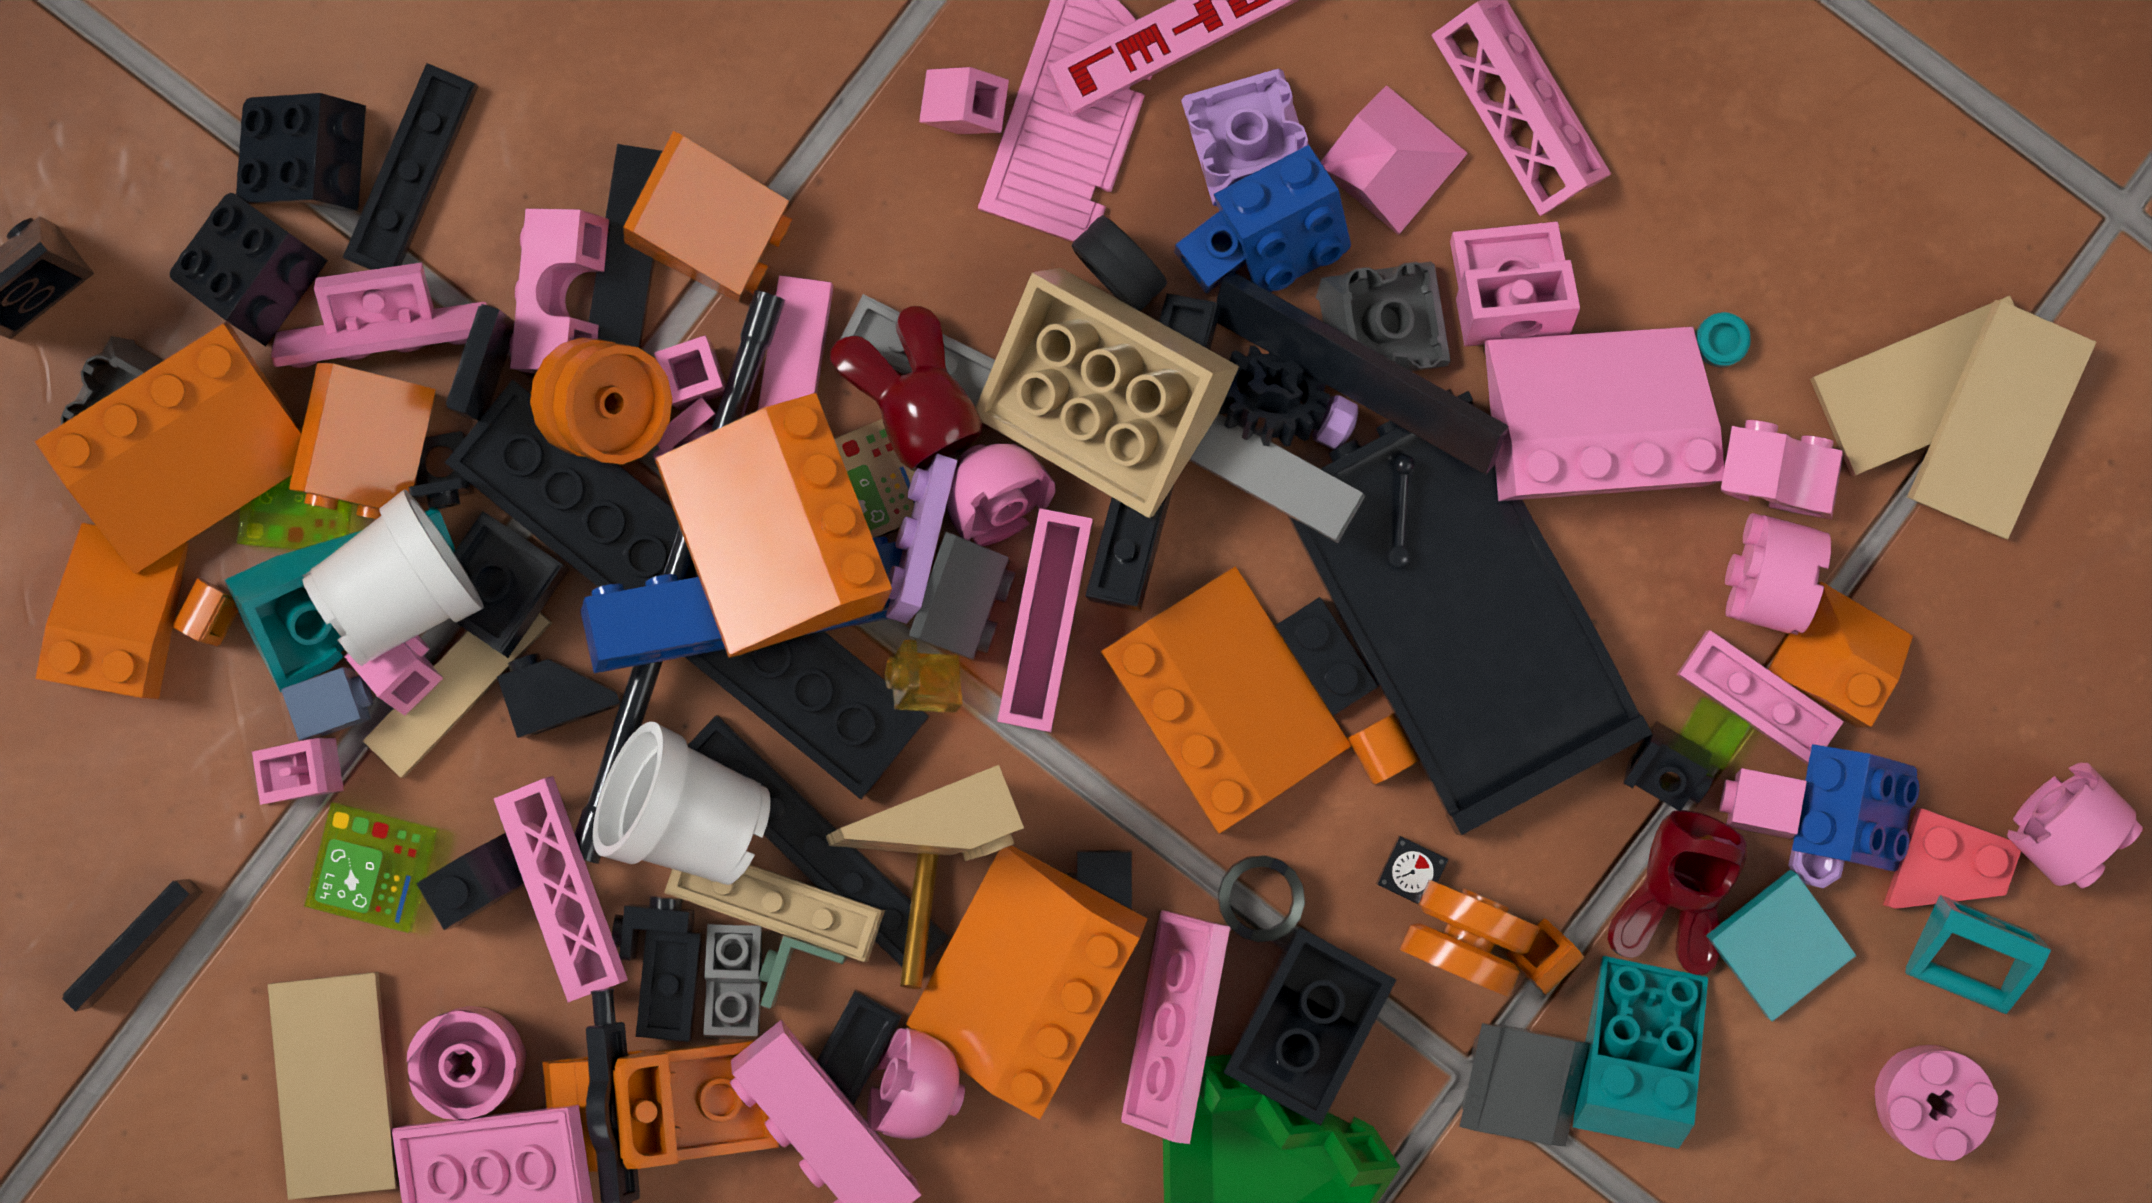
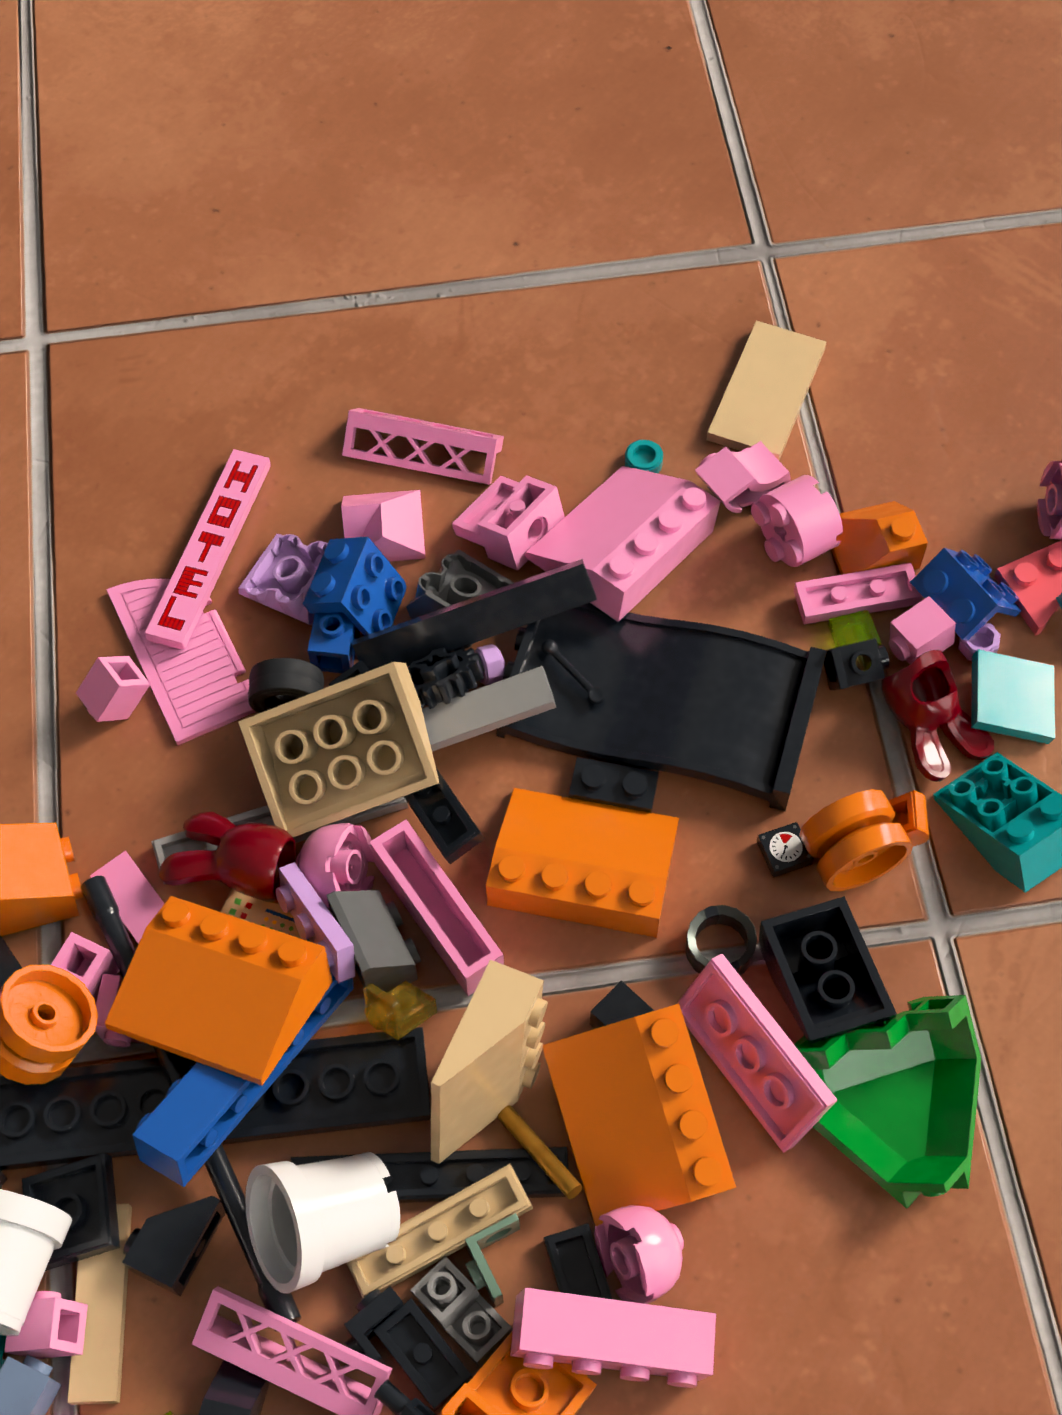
camera: 45 degrees left, 25 degrees down
(1383, 749) = (697, 801): orange brick -> none
(1523, 1084) = (972, 897): dark grey slope -> none
(2001, 419) = (818, 369): tan tile -> none

